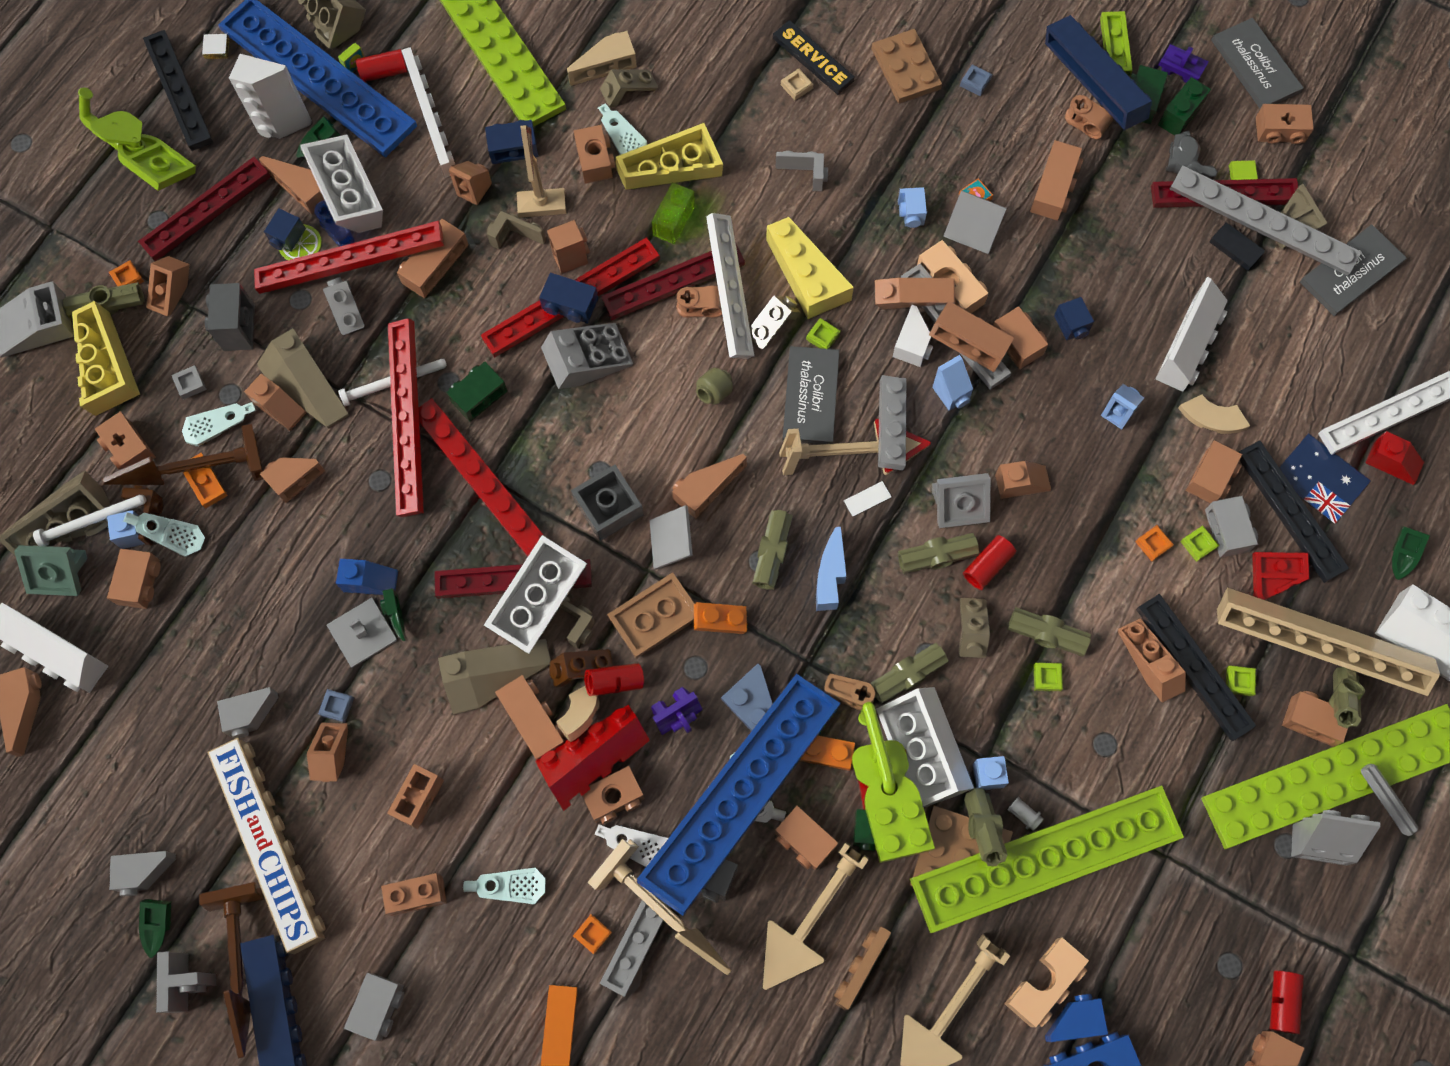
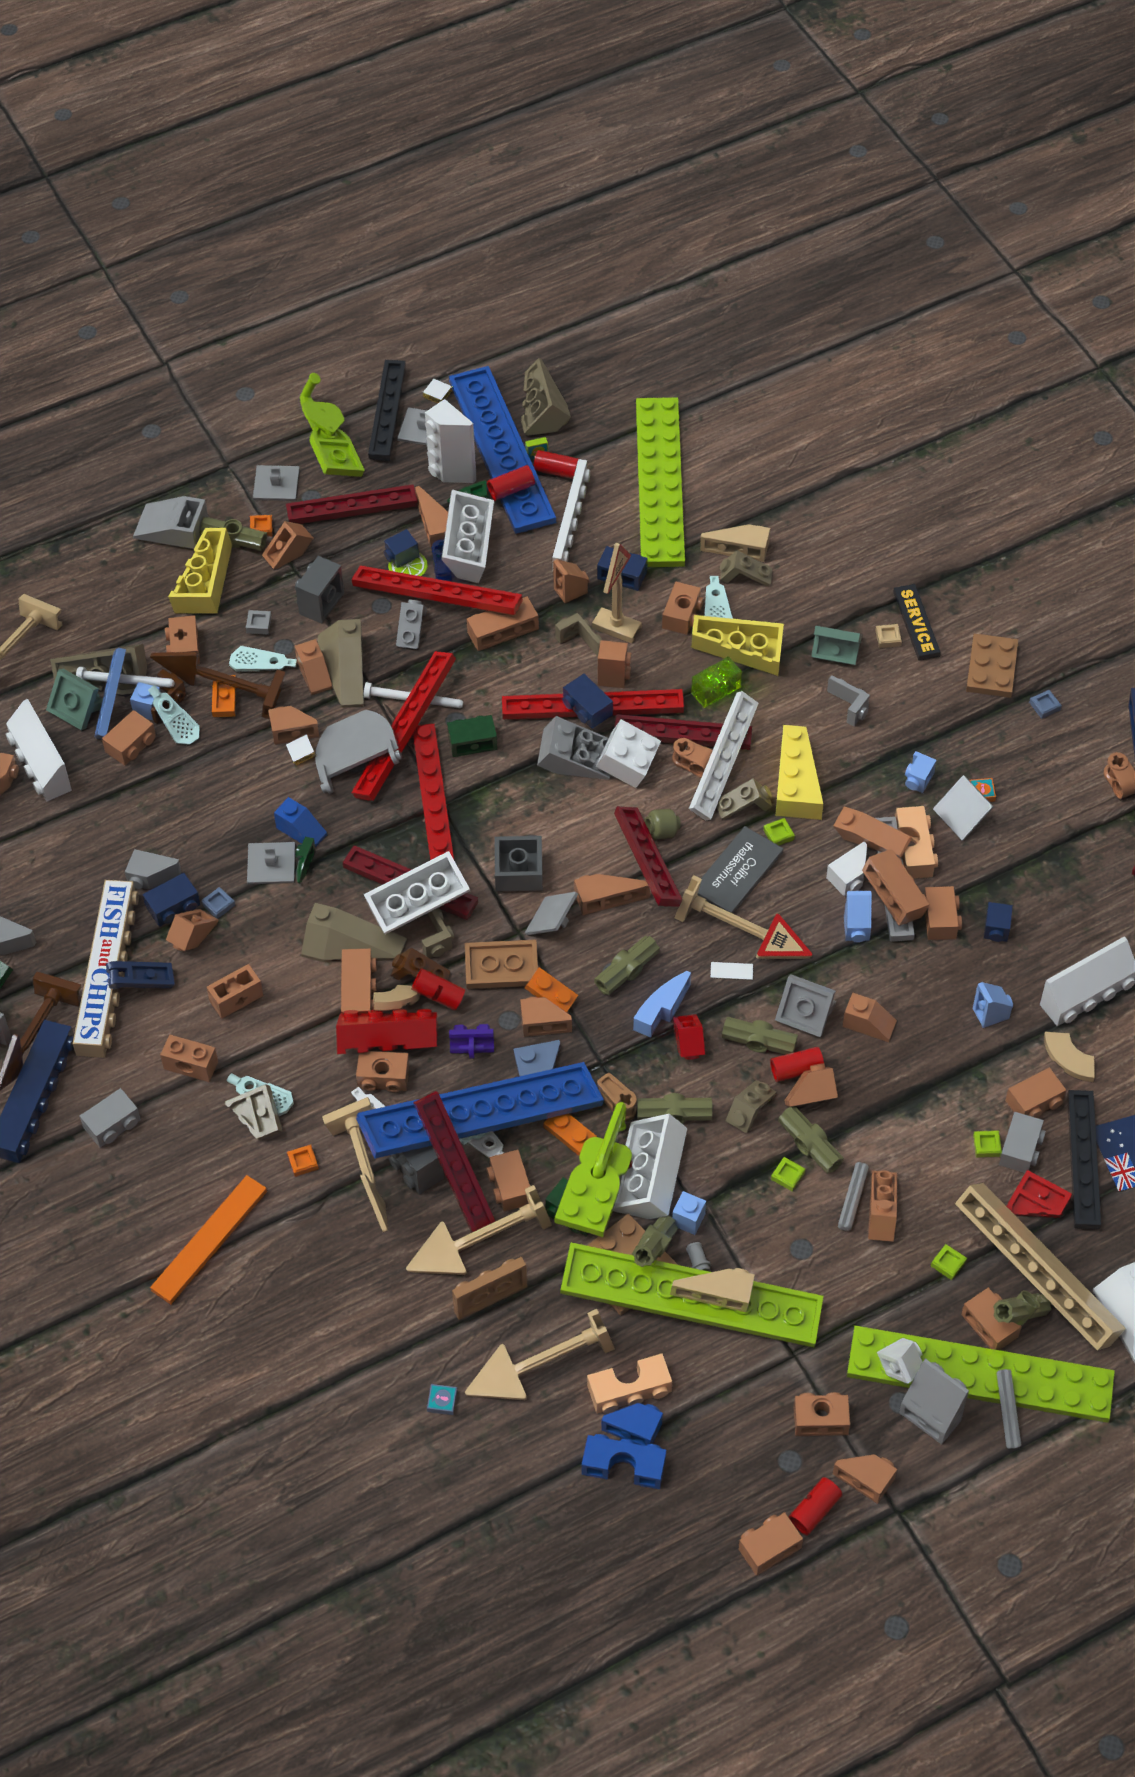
camera: 30 degrees right, 15 degrees down
(85, 545) = (110, 693): none -> medium blue tile
(112, 223) = (276, 483): none -> light grey piece
(218, 92) = (413, 427): none -> light grey piece
(288, 731) = (171, 899): none -> dark blue brick
(309, 834) = (140, 974): none -> dark blue plate
(317, 496) = (301, 750): none -> white tile
(351, 107) = (510, 482): none -> red pin
(366, 463) = (352, 744): none -> light grey piece
(518, 912) = (257, 1111): none -> wing
(632, 949) = (329, 1183): light grey plate -> none
(640, 331) = (628, 753): none -> white brick
(726, 429) = (648, 856): none -> dark red plate
(728, 649) = (543, 1017): none -> nougat slope
(756, 865) = (454, 1161): none -> dark red plate
(759, 117) = (836, 645): none -> sand green bracket
(874, 589) = (689, 1036): none -> red slope
(892, 423) = (788, 922): light grey plate -> none
(1020, 579) = (813, 1086): none -> nougat slope
(1057, 180) = (1058, 811): nougat brick -> none
(1076, 840) = (720, 1288): none -> tan slope
(1119, 666) = (853, 1196): none -> light grey axle
(1154, 543) = (948, 1124): orange tile -> none
(1198, 669) = (915, 1230): black plate -> none
(1250, 903) = (810, 1424): none -> nougat brick
(1281, 815) = (901, 1360): none -> white slope
(1312, 940) = (867, 1475): none -> nougat slope

